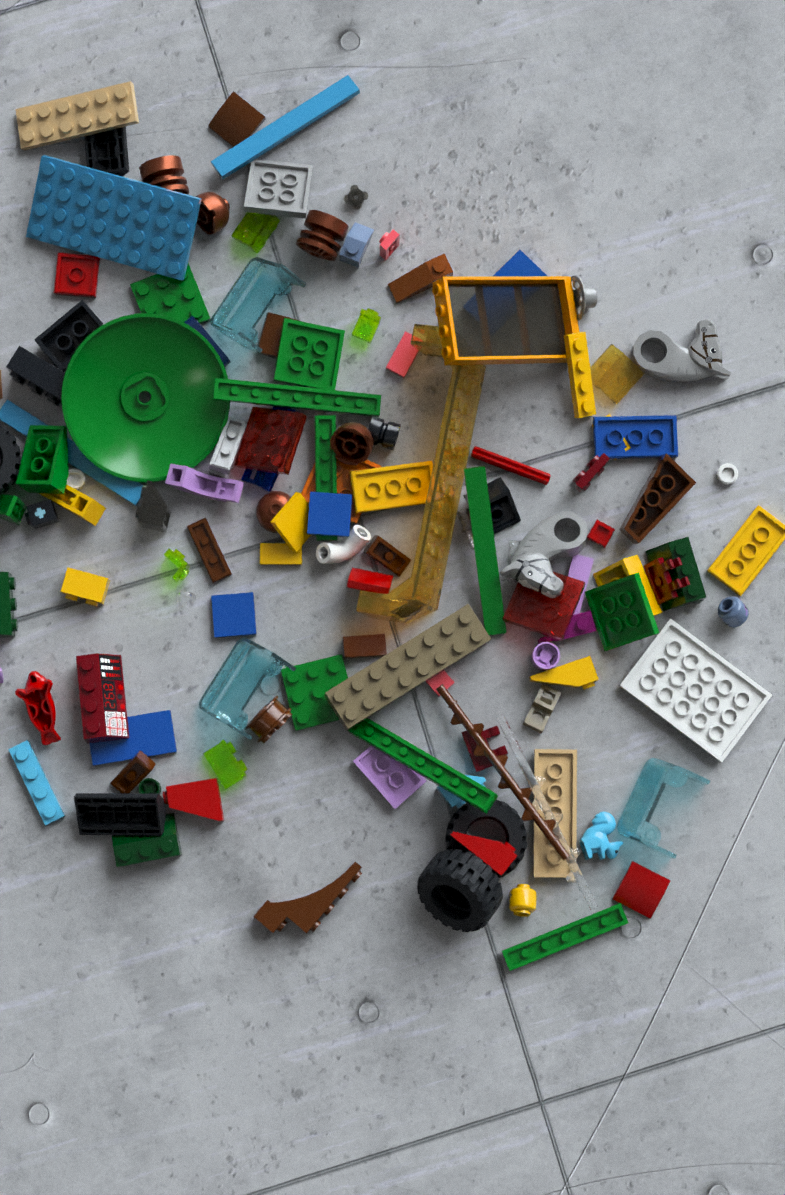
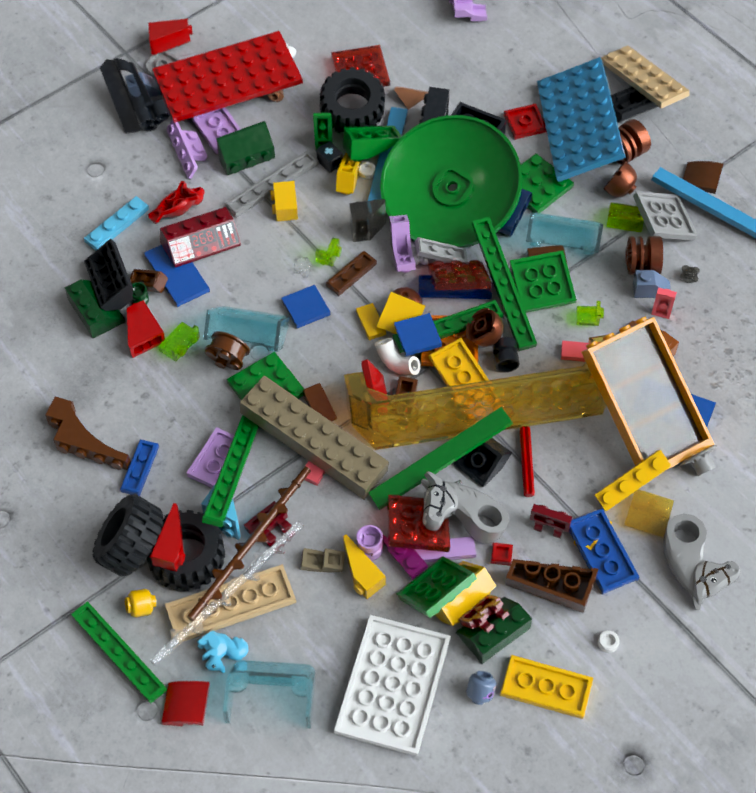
camera: 70 degrees right, 25 degrees down
(50, 591) = (261, 189): none -> light grey tile
(365, 854) = (139, 467): none -> blue tile

